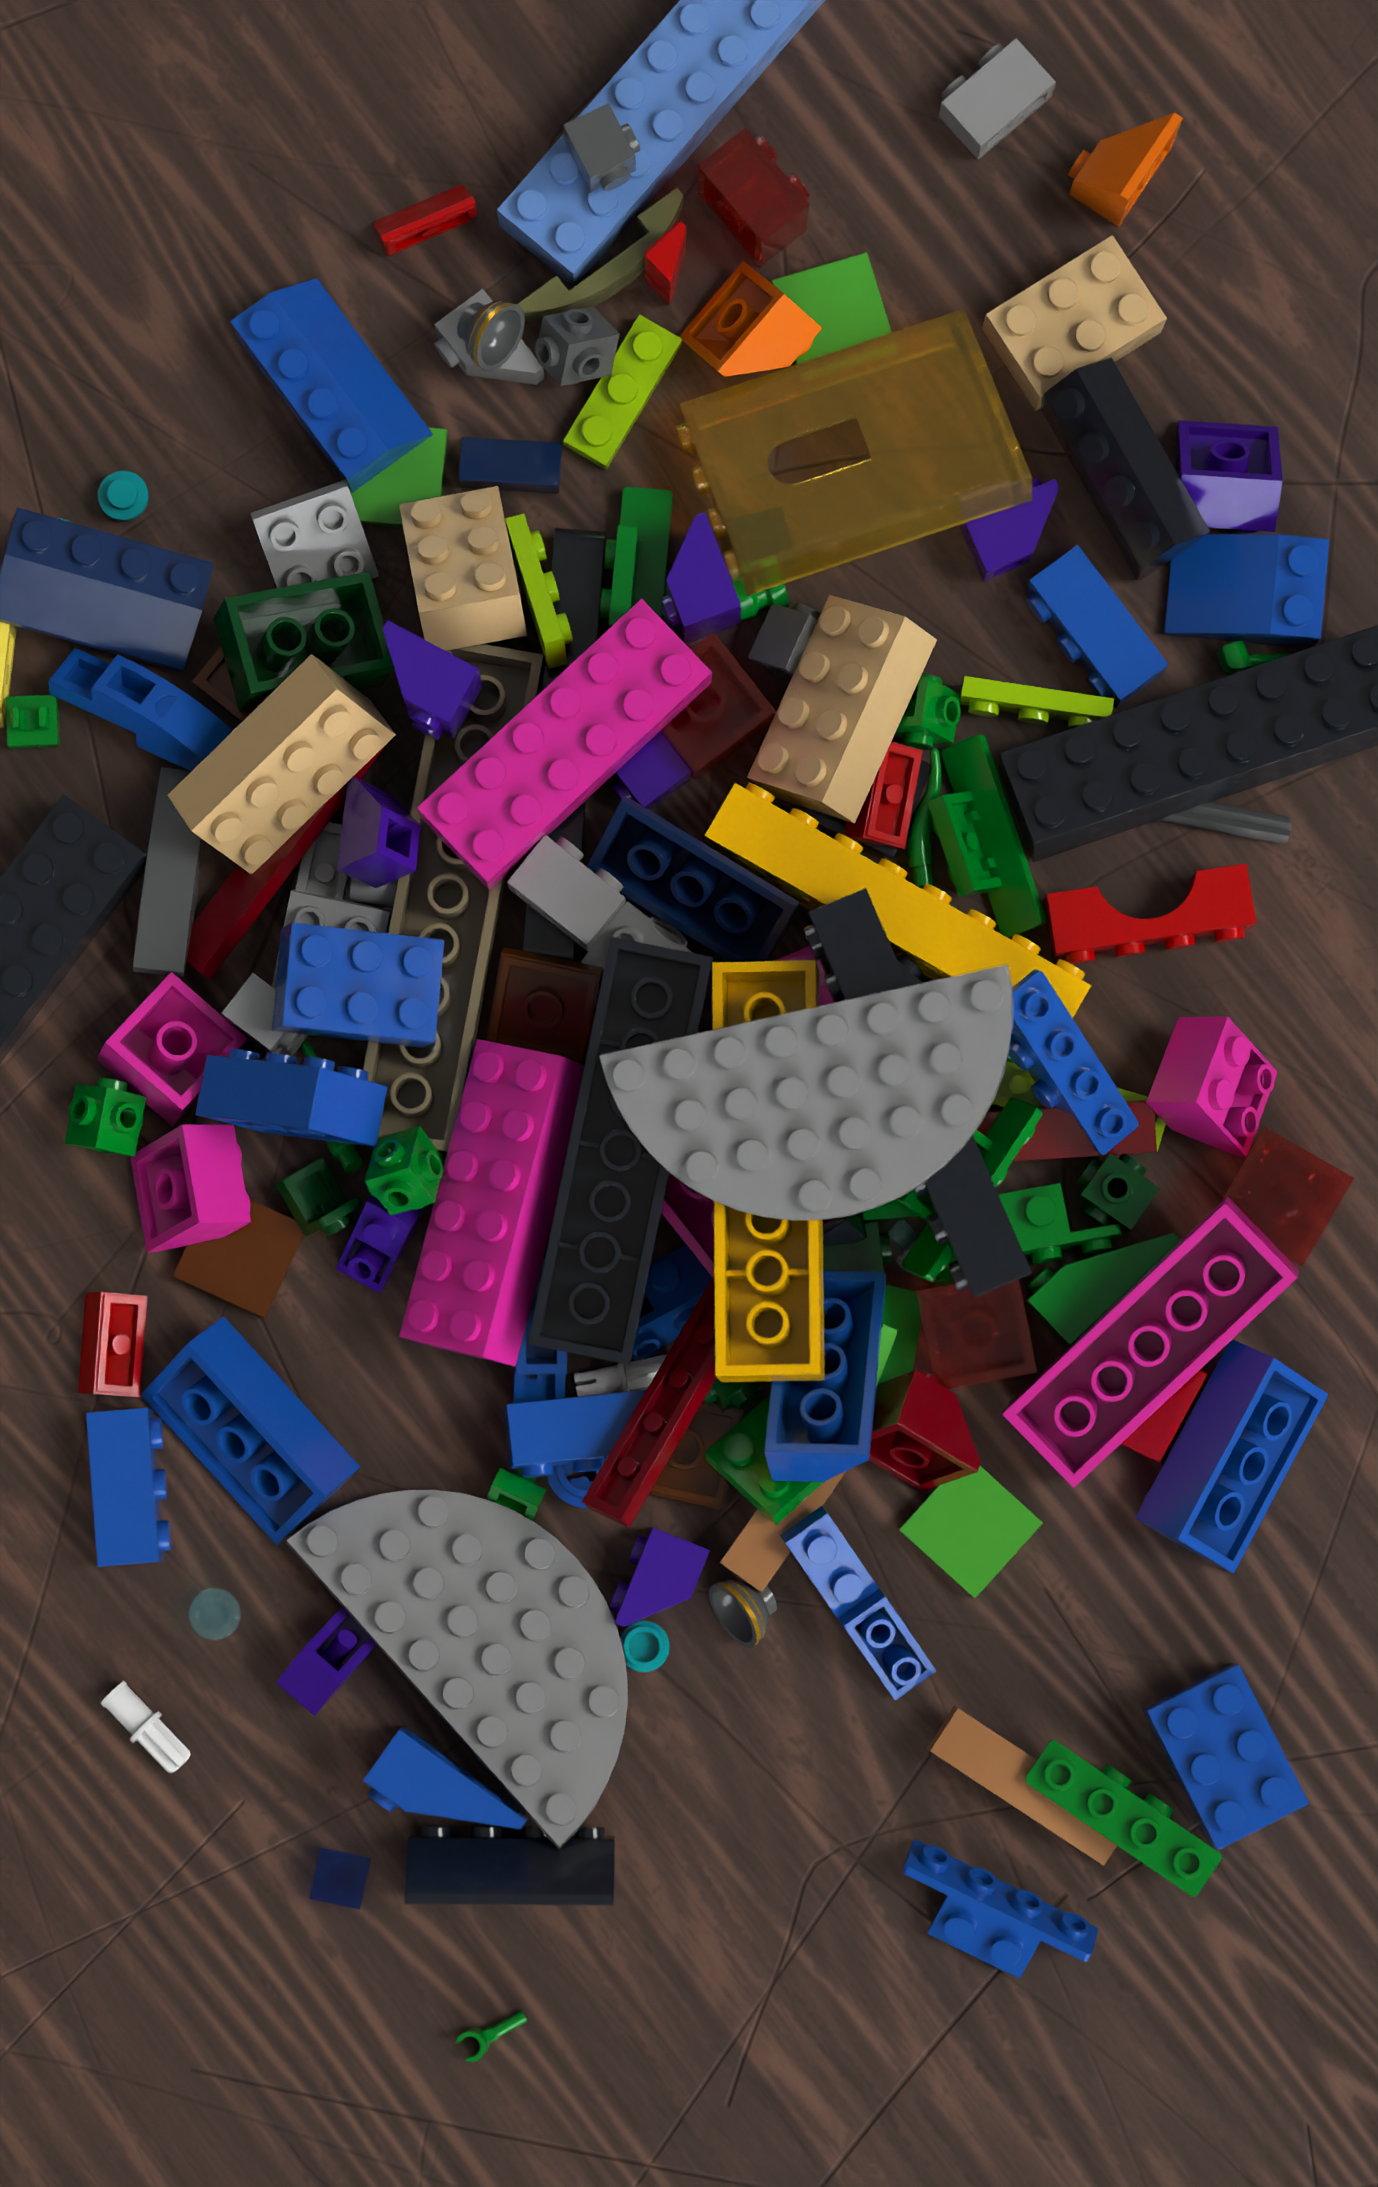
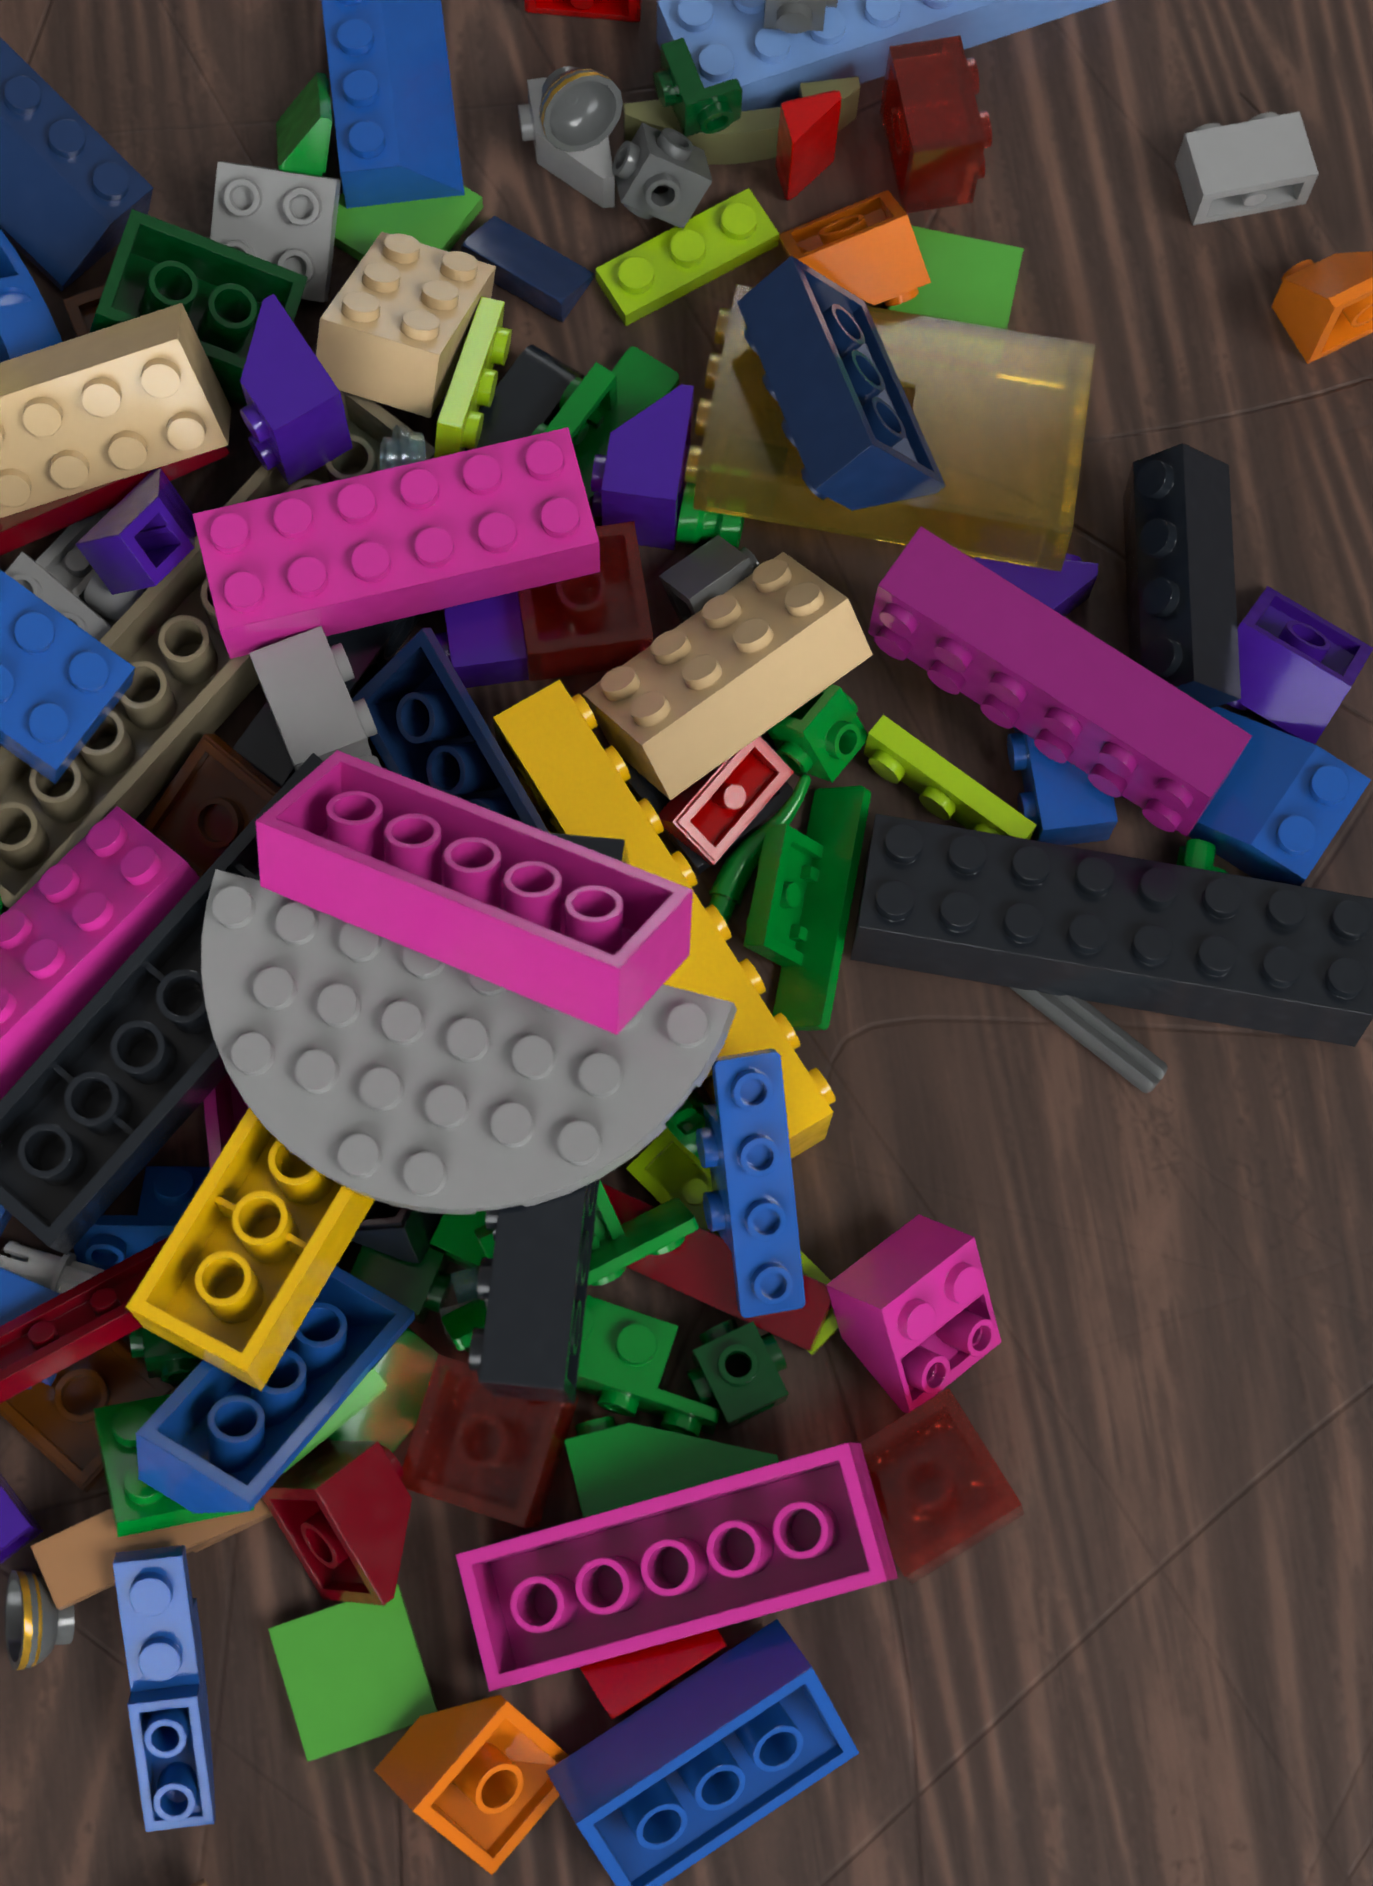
camera: 30 degrees right, 10 degrees down
(123, 496) = (113, 94): teal plate -> none
(294, 452) = (306, 130): none -> green slope
(527, 676) = (402, 448): none -> clear light blue plate
(558, 275) = (695, 107): none -> dark green bracket
(794, 981) = (476, 890): none -> dark pink brick
(809, 459) = (837, 390): none -> dark blue slope
(1074, 319) = (1225, 404): tan brick -> none
(1079, 598) = (1054, 683): none -> magenta brick
(1086, 924) = (1025, 1114): red arch -> none
(1090, 1546) = (475, 1776): none -> orange slope

